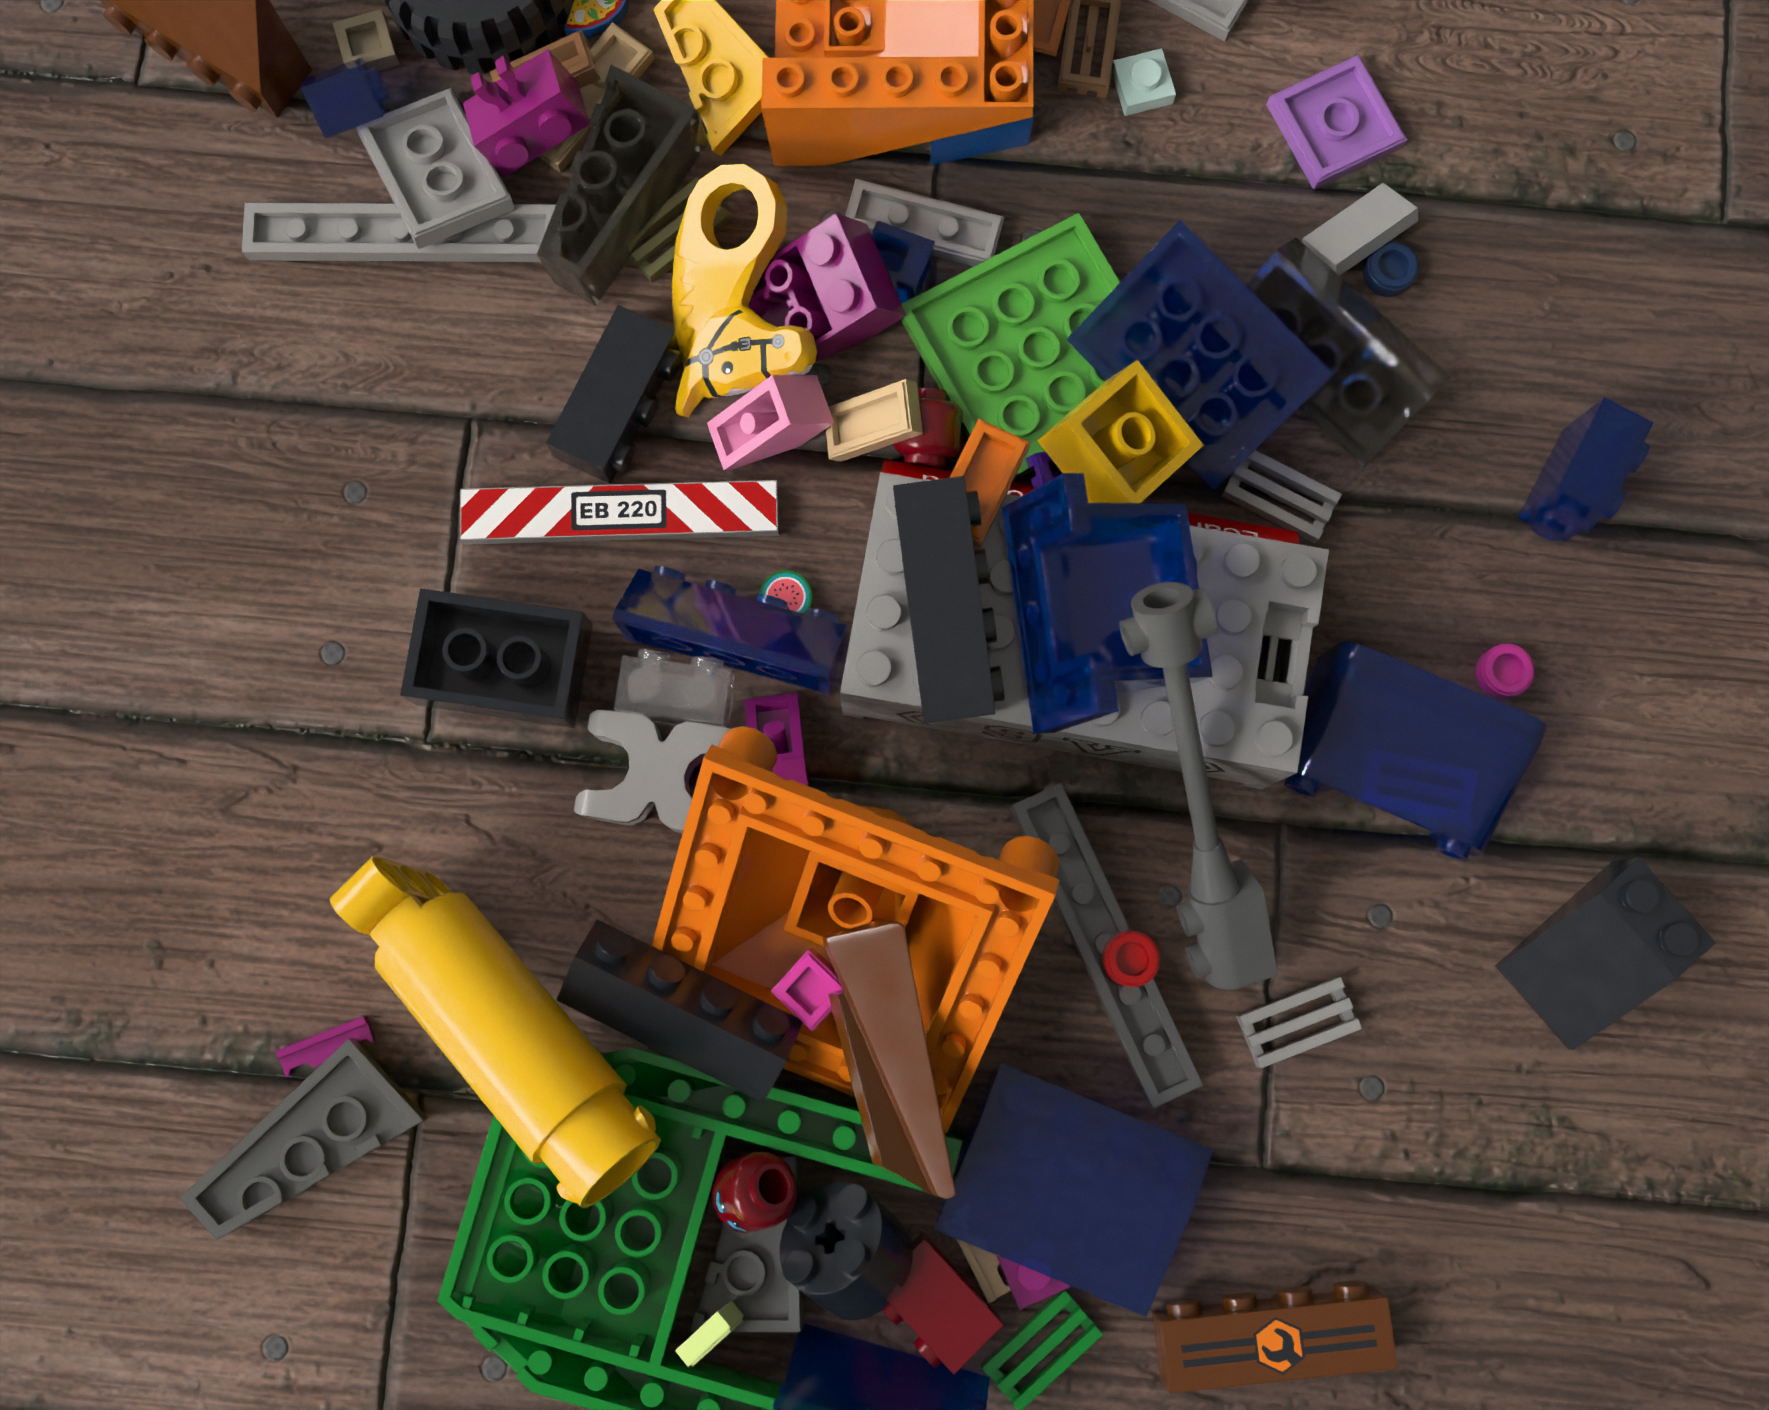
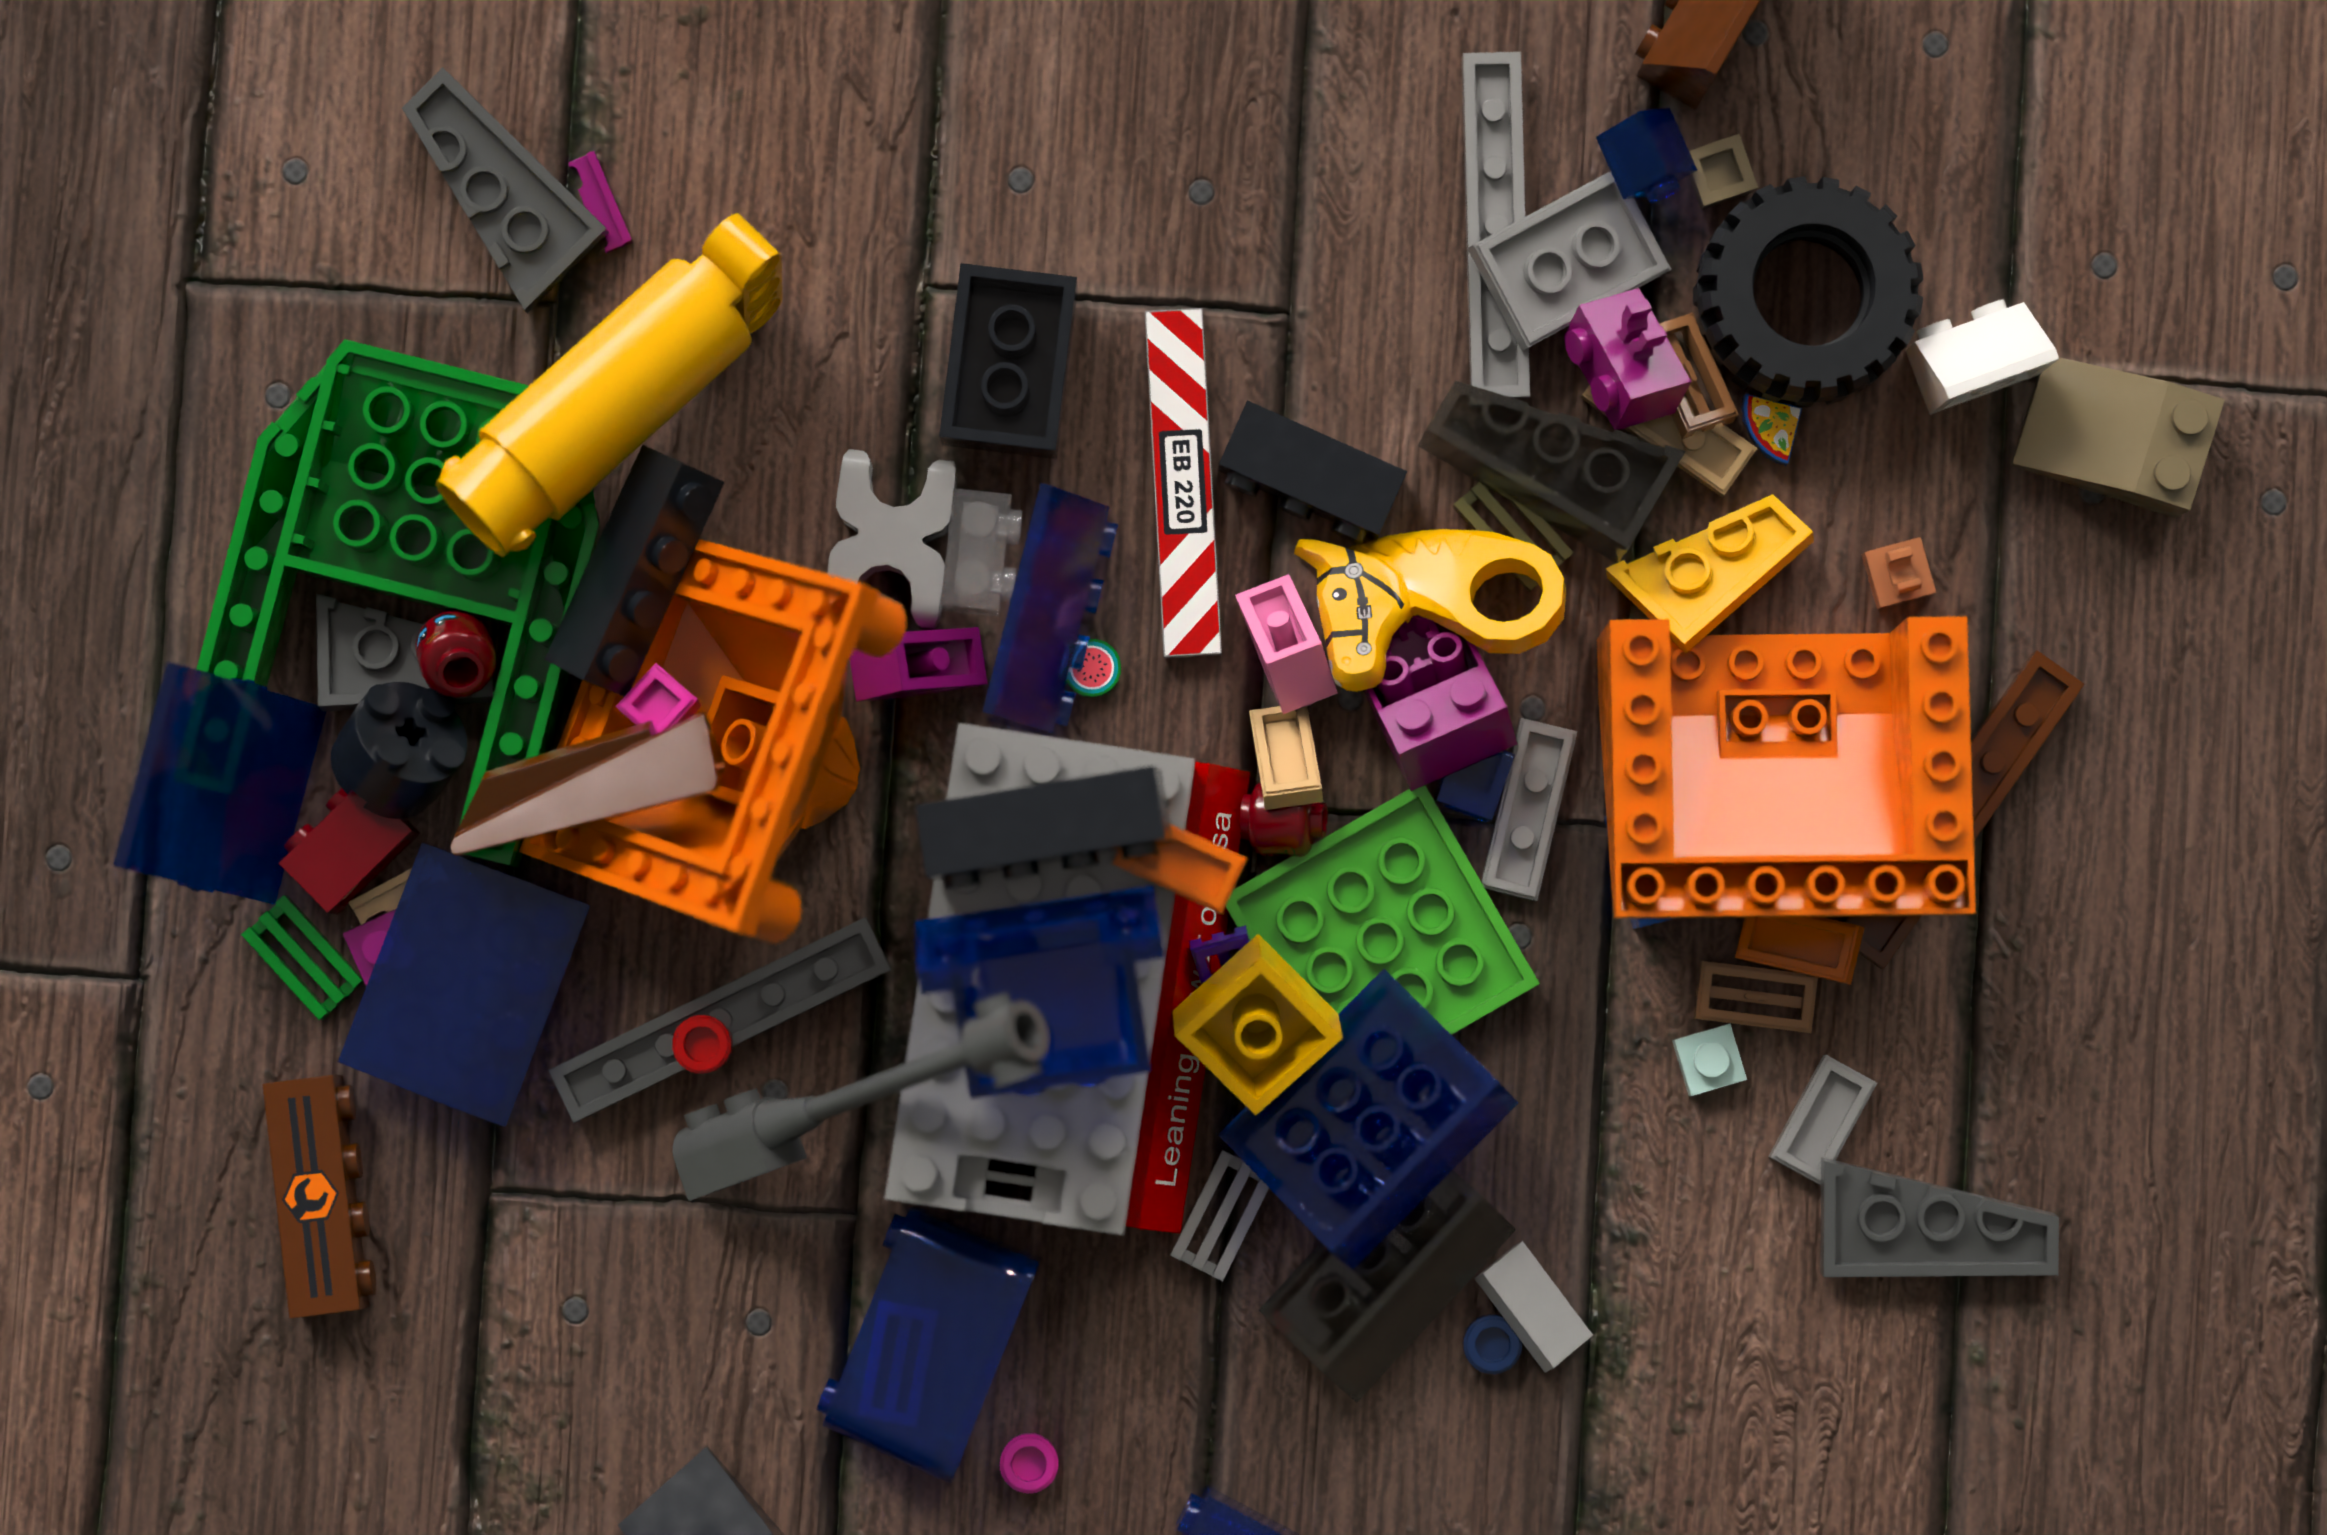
camera: 90 degrees right, 5 degrees up
(710, 1334) = (315, 615): yellowish green tile -> none
(1336, 122) = (1669, 1284): medium lavender tile -> none
(1340, 1006) = (620, 1237): light grey tile -> none

